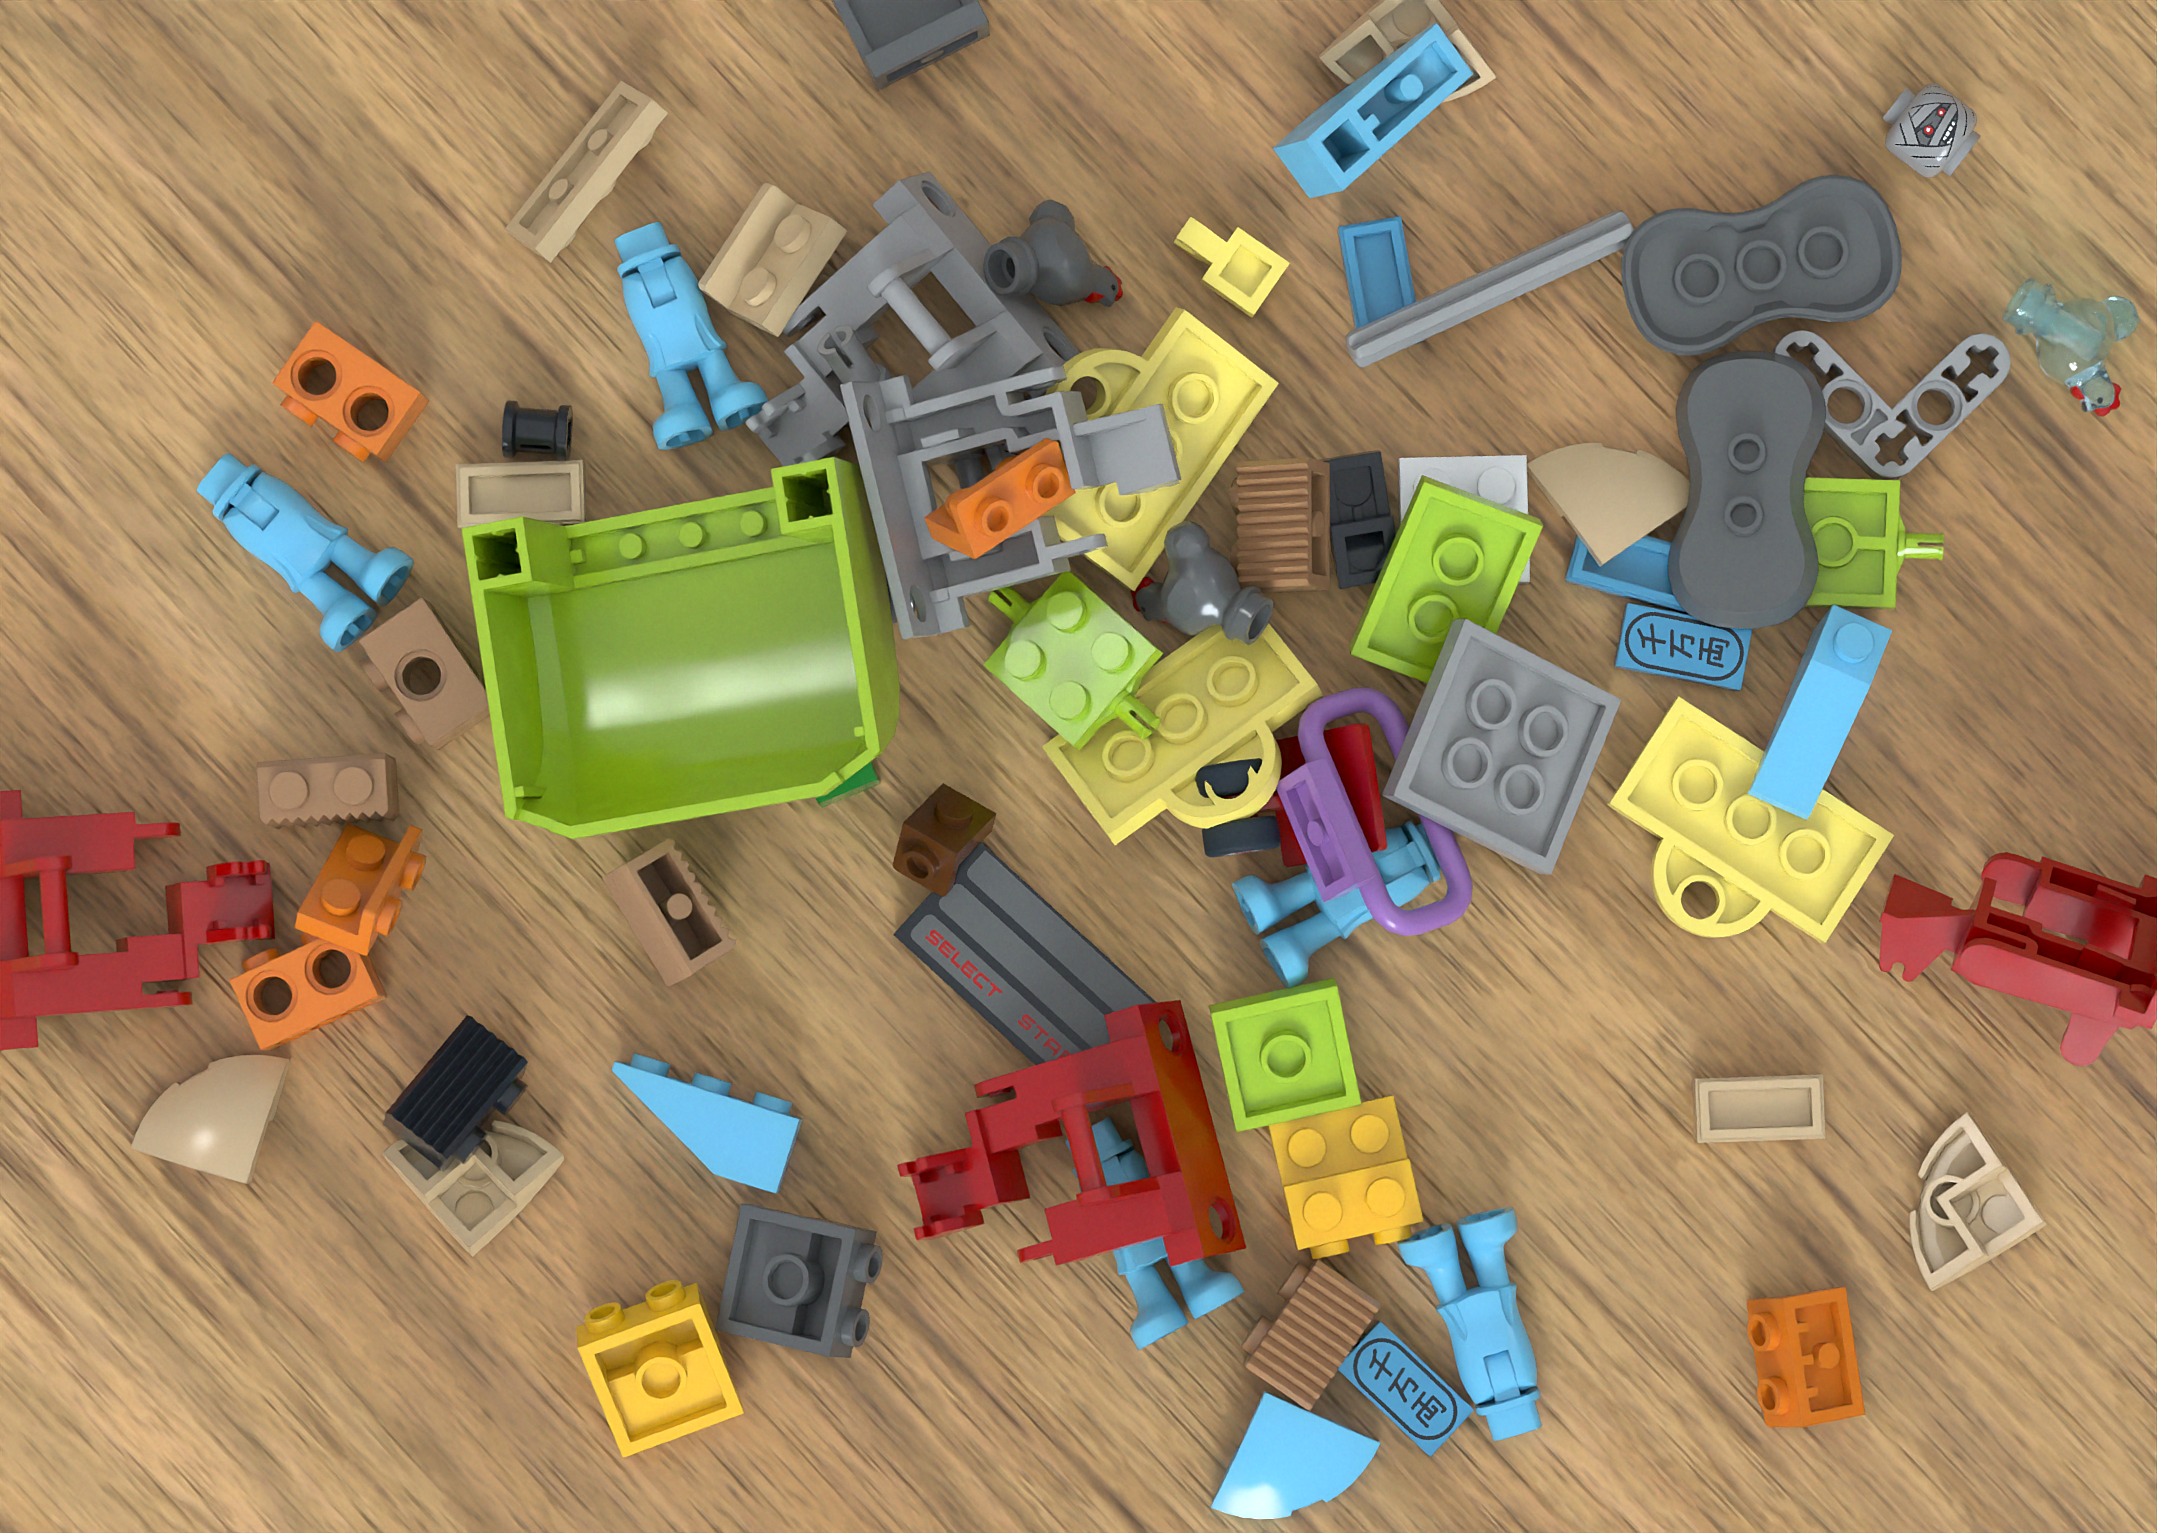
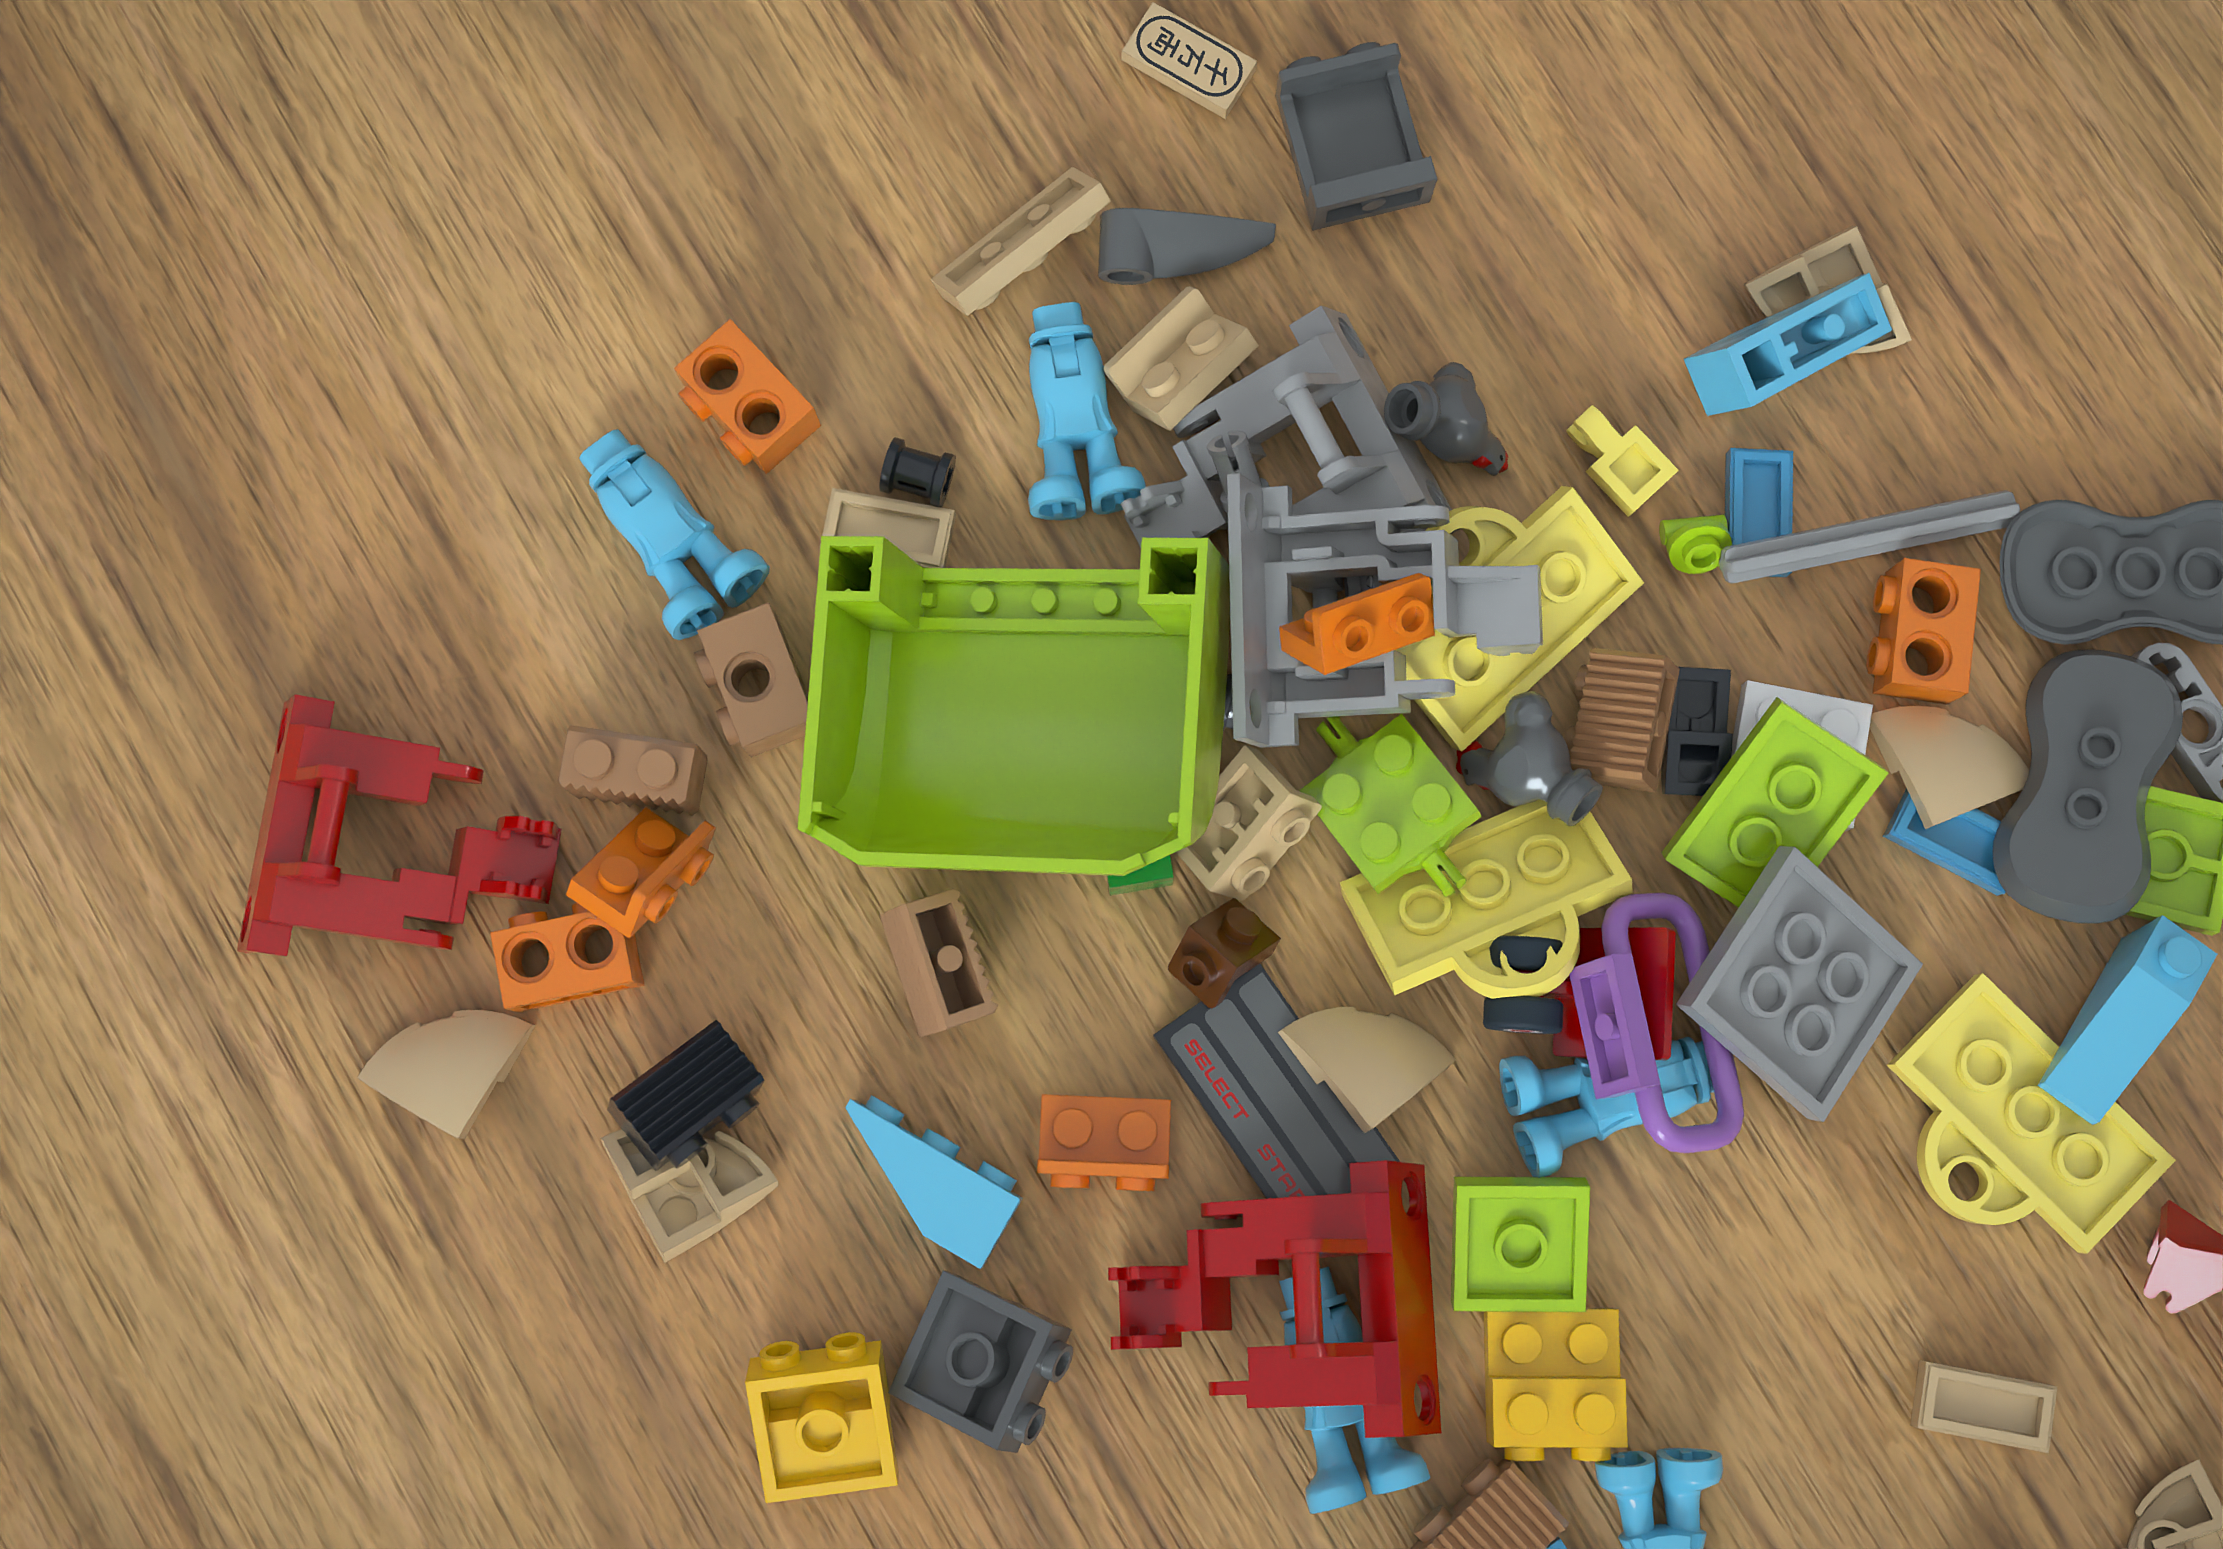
camera: 15 degrees right, 5 degrees down
(738, 142) = (1167, 244): none -> dark grey piece
(868, 1044) = (1104, 1139): none -> orange bracket
(940, 712) = (1250, 826): none -> tan bracket
(1103, 911) = (1367, 1059): none -> tan brick
(1322, 329) = (1695, 542): none -> lime plate
(1578, 371) = (1941, 636): none -> orange brick
(1681, 648) = (1991, 926): dark azure tile -> none

